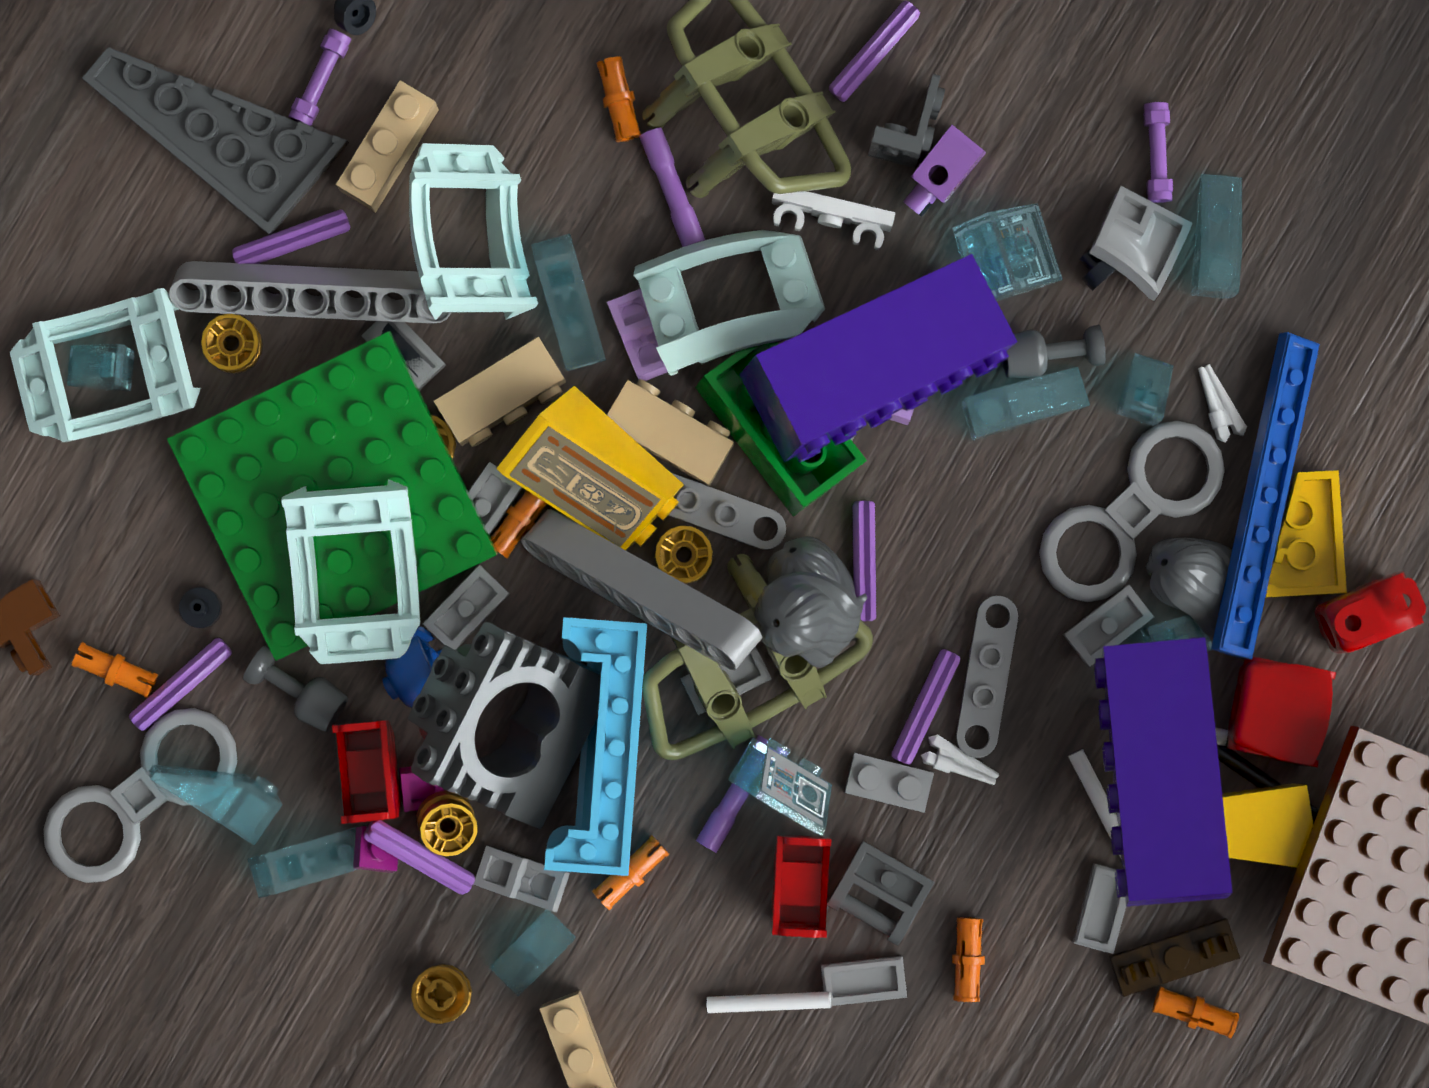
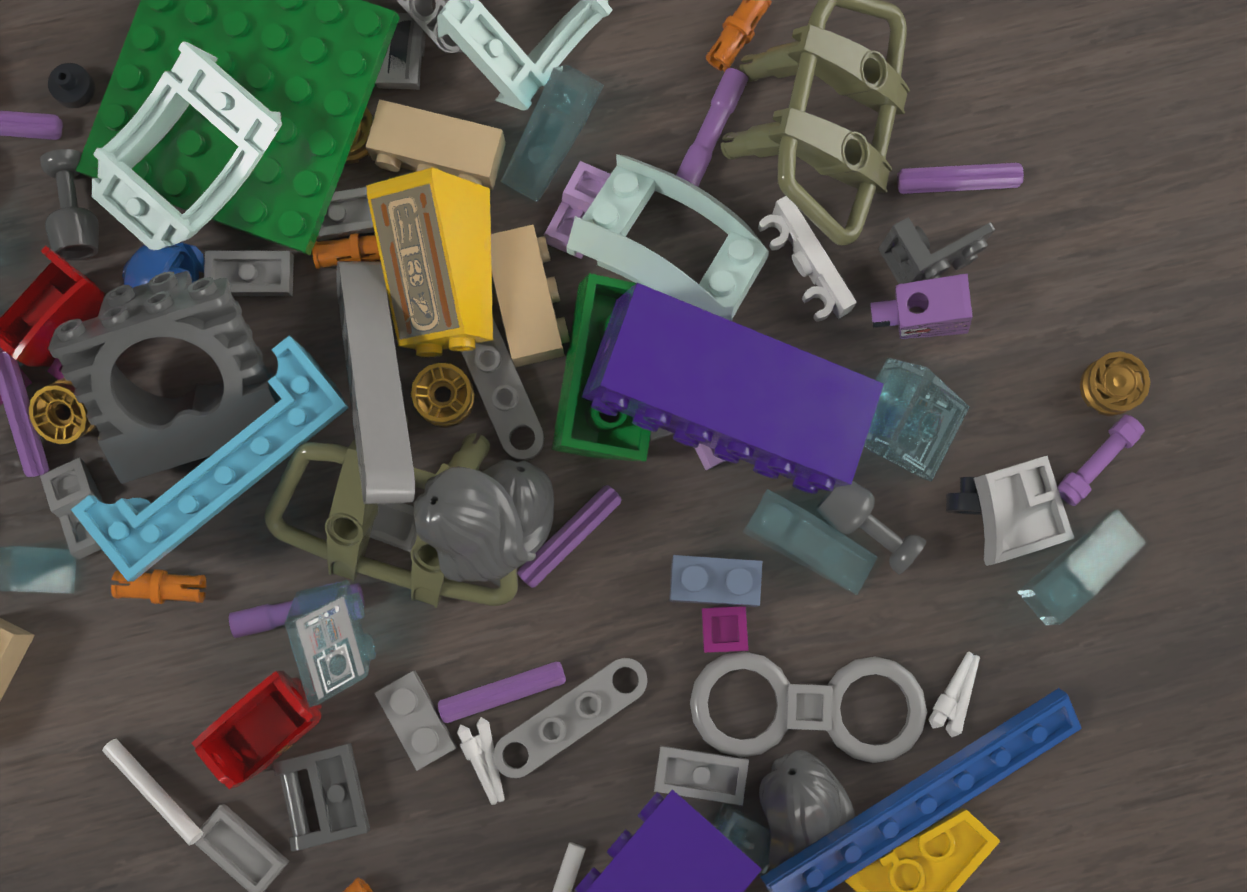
camera: 50 degrees right, 5 degrees down
(990, 492) = (715, 581): none -> sand blue brick
(1028, 517) = (724, 629): none -> magenta plate
(1117, 90) = (1114, 383): none -> pearl gold wheel
(1145, 390) = (911, 626): clear light blue slope -> none

